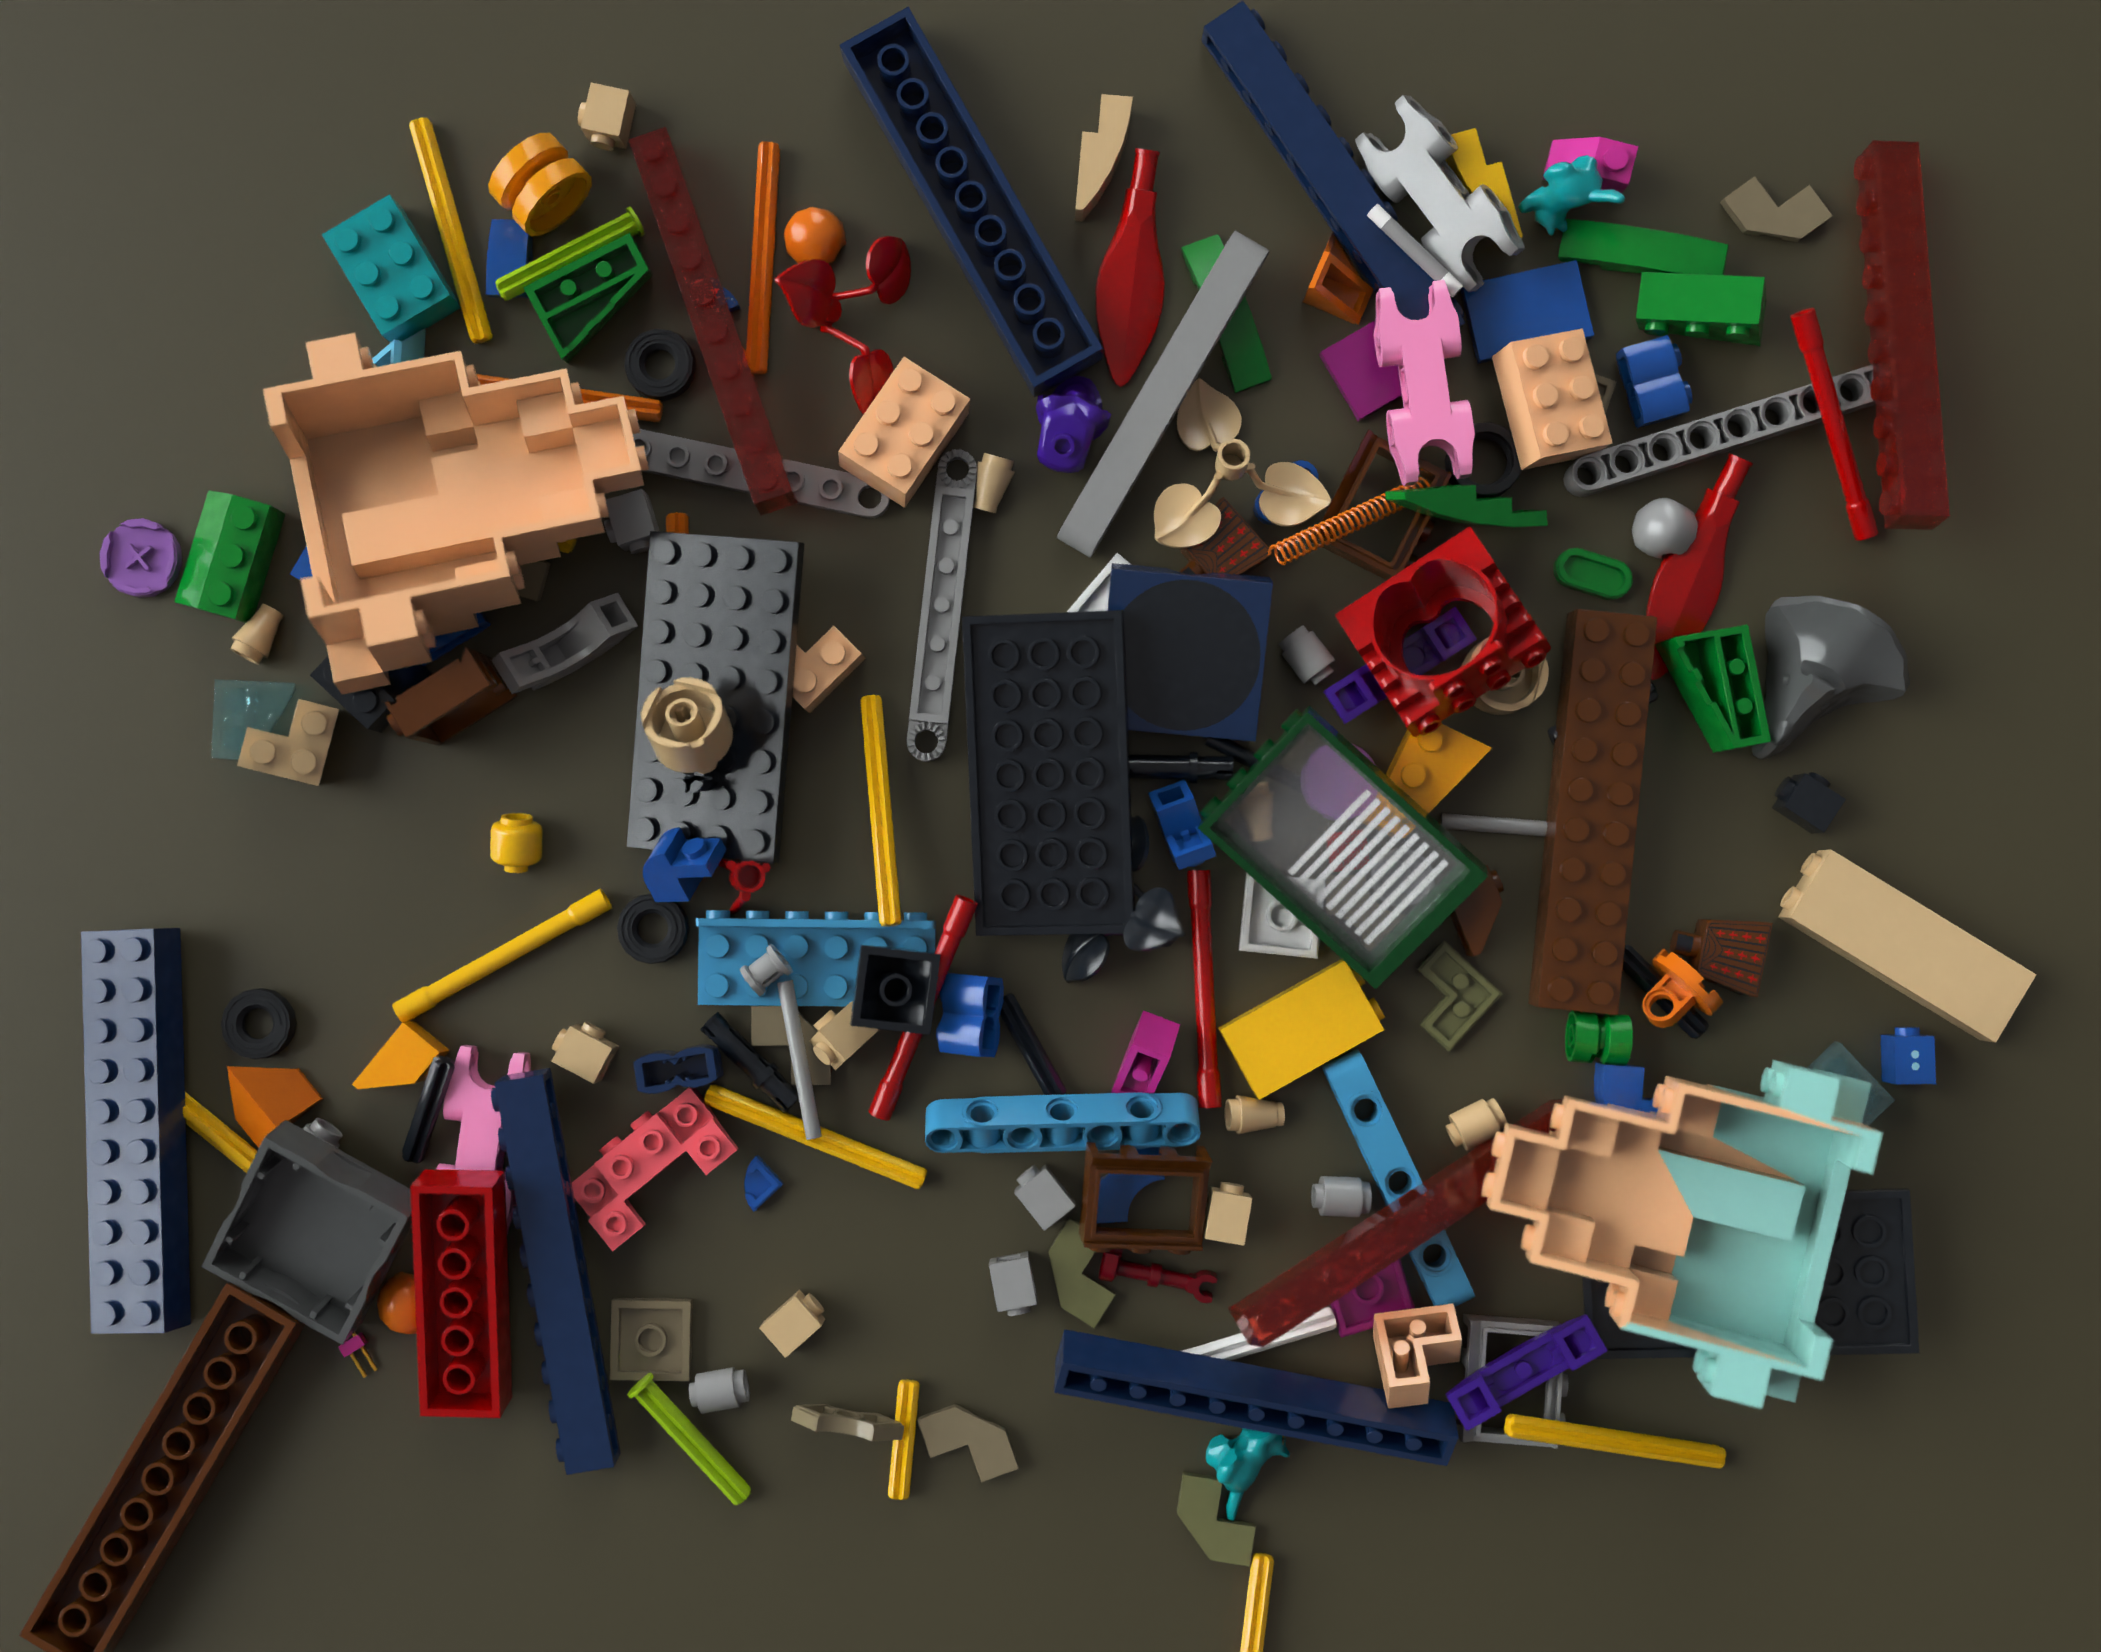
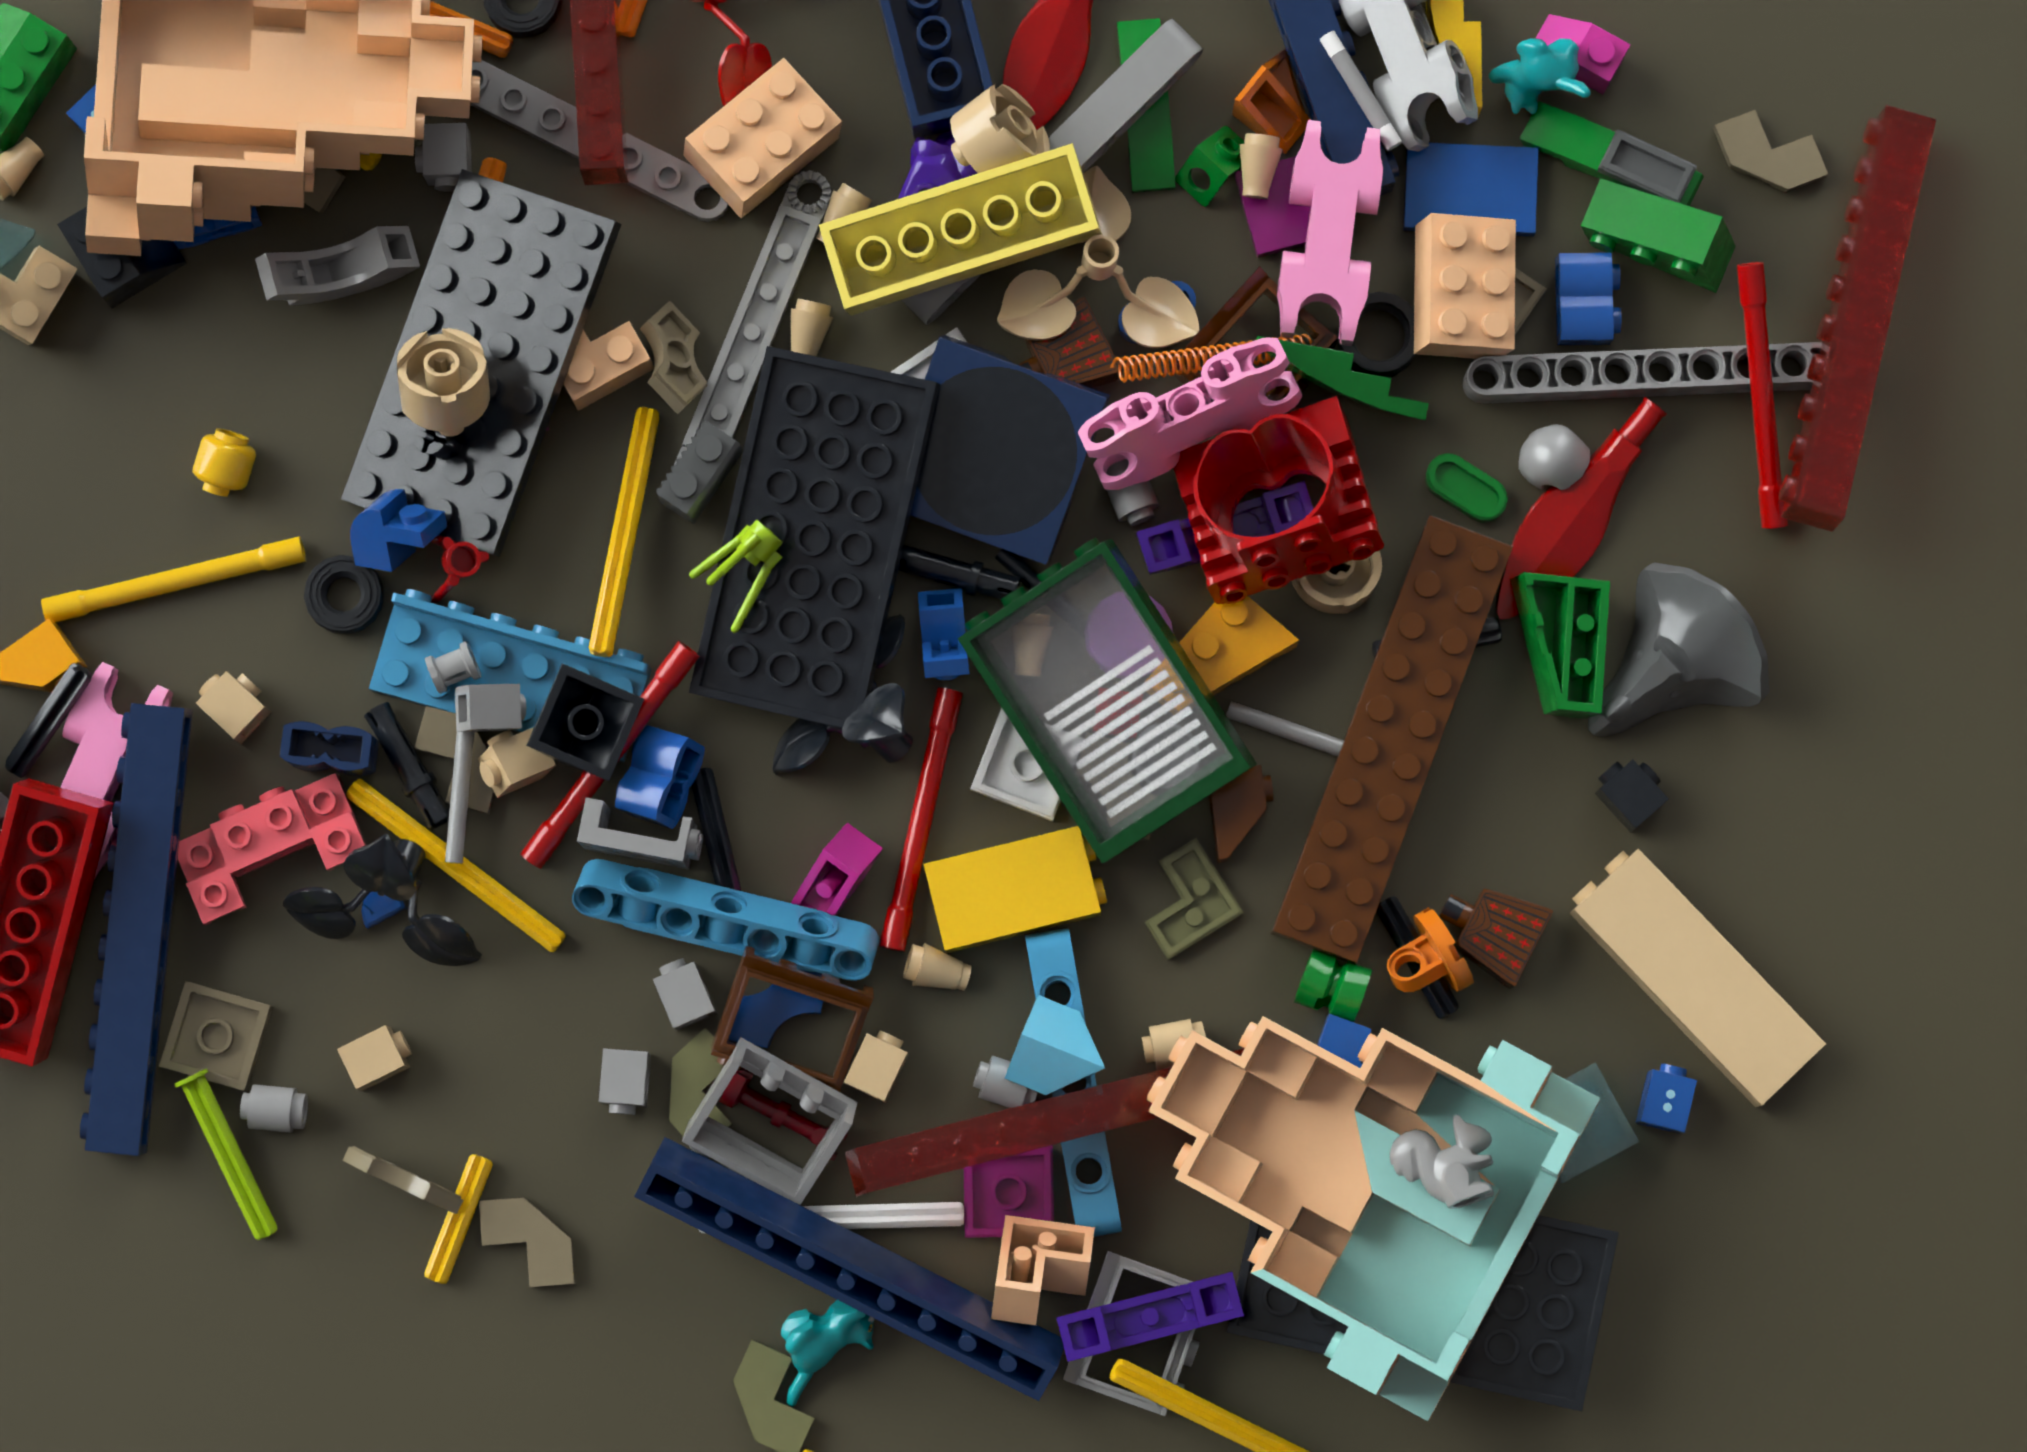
camera: 15 degrees right, 5 degrees down
(450, 700) = (200, 290): reddish brown window -> none
(762, 1173) = (390, 871): none -> black plant
(808, 998) = (489, 707): none -> light grey brick
(886, 658) = (675, 368): none -> dark tan tile
(932, 741) = (699, 472): none -> dark grey brick
(934, 1085) = (597, 837): none -> light grey panel
(989, 588) = (809, 326): none -> tan cone
(1001, 795) = (756, 545): none -> lime plant
(1103, 467) = (960, 229): none -> light yellow slope
(1113, 376) = (996, 130): none -> tan brick
(1142, 1323) = (751, 1159): none -> light grey window
(1305, 342) = (1218, 158): none -> green bracket
(1341, 338) = (1258, 164): none -> tan cone
(1376, 556) = (1156, 429): none -> bright pink piece
(1379, 1161) = (1053, 1049): none -> medium azure slope
(1681, 251) = (1646, 167): none -> dark grey tile
(1760, 1188) = (1448, 1173): none -> light grey animal

